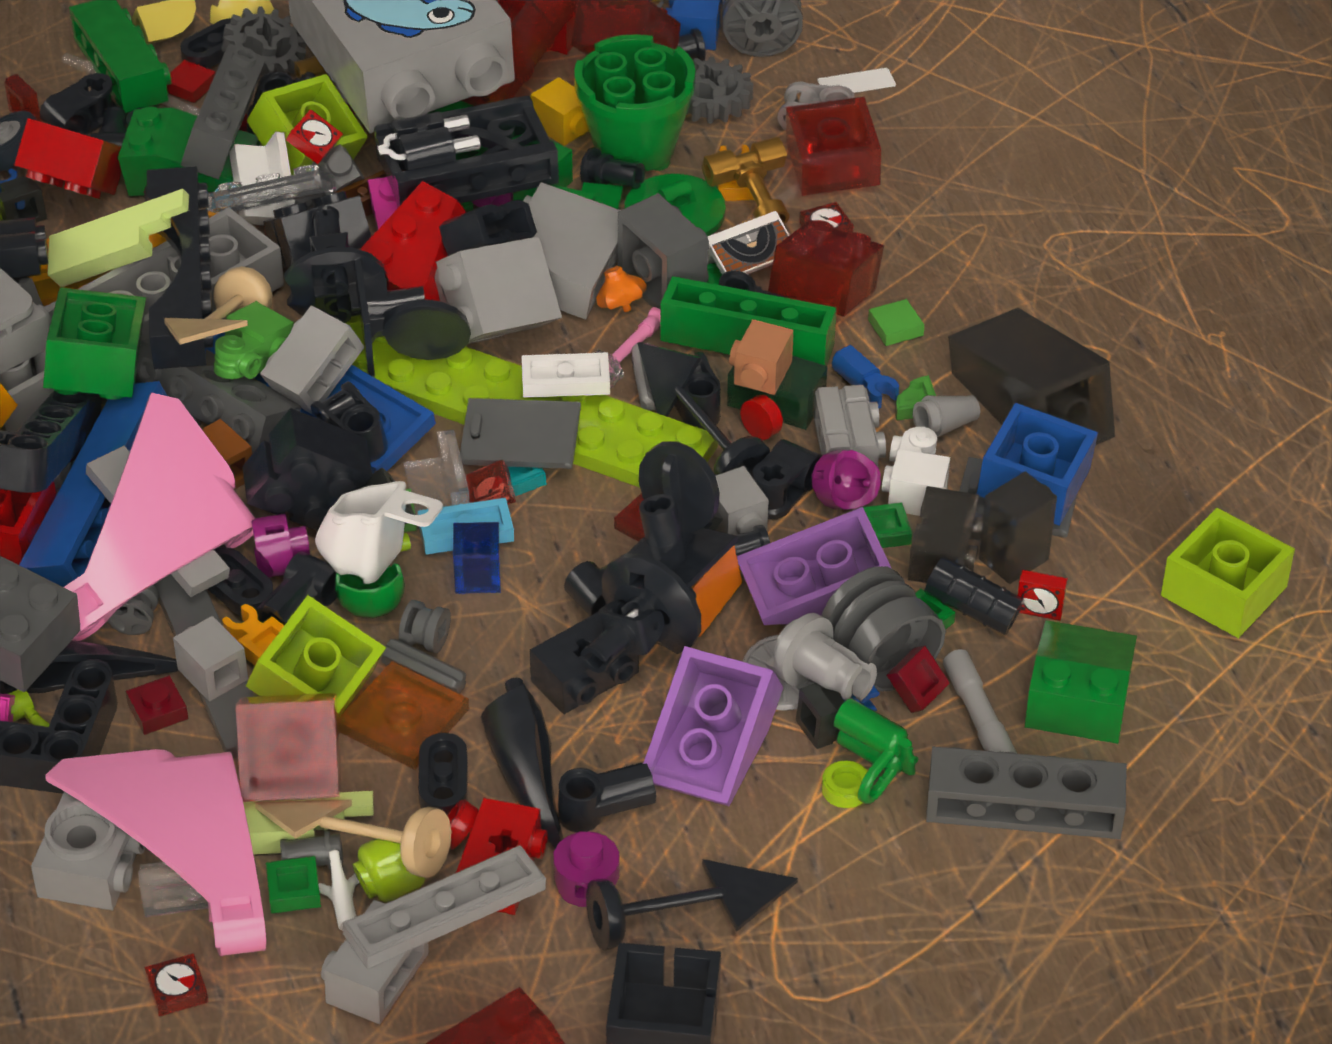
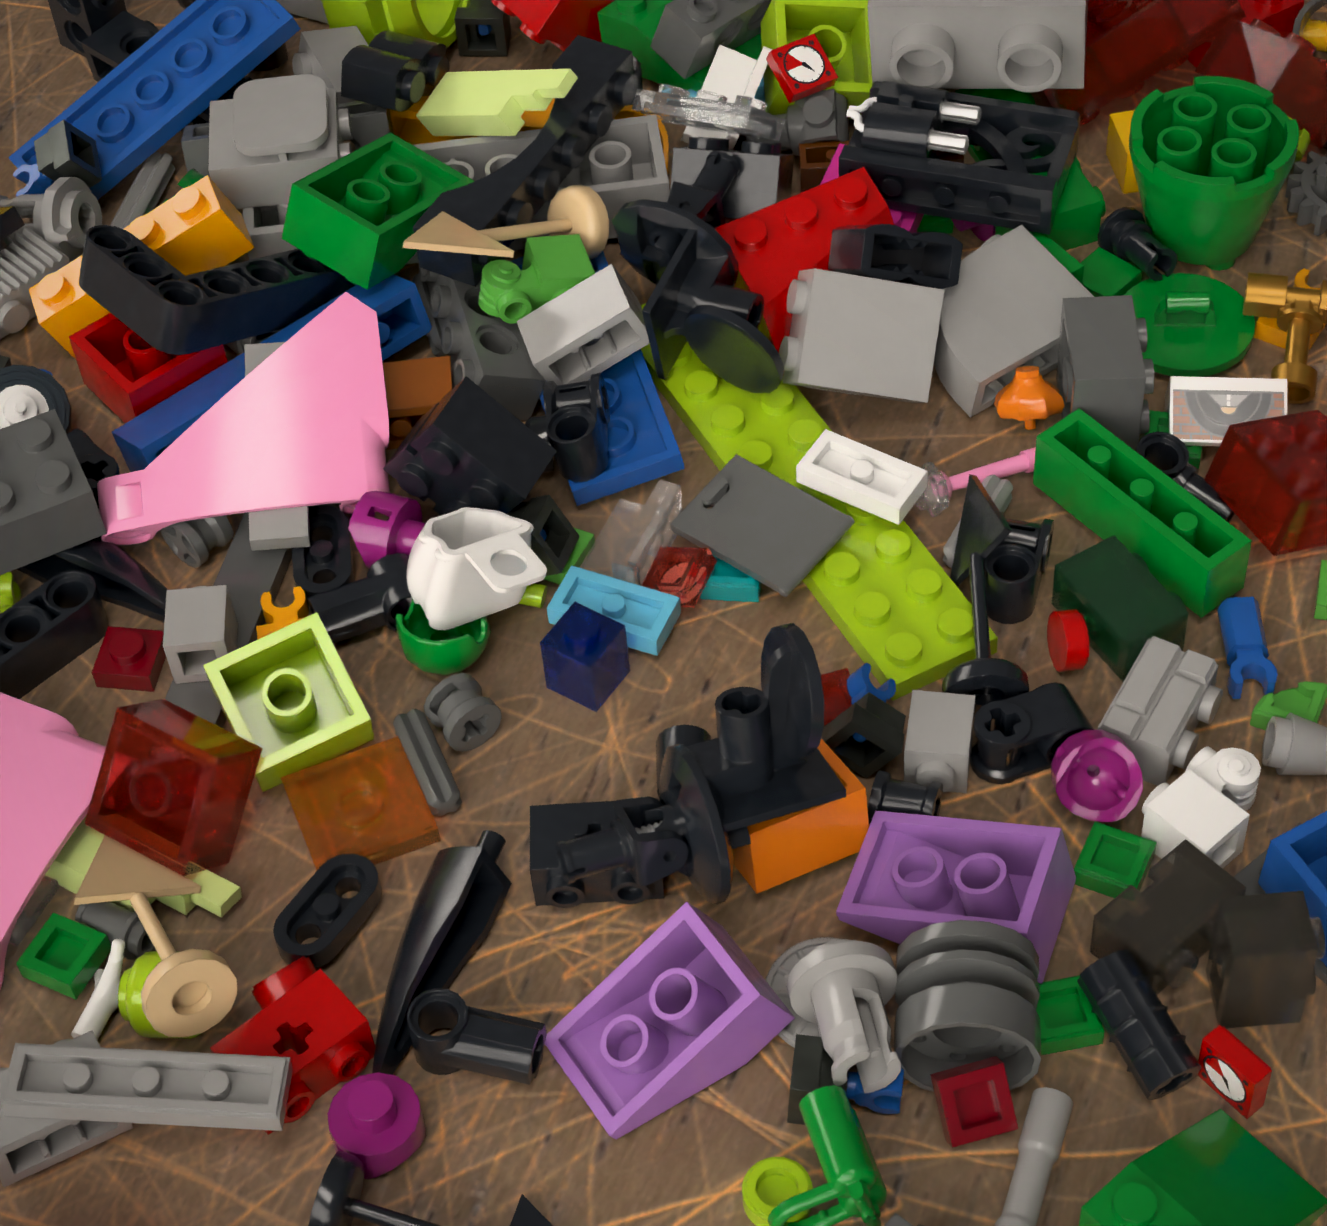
camera: 40 degrees right, 5 degrees up
(762, 356) = (1101, 564): nougat brick -> none

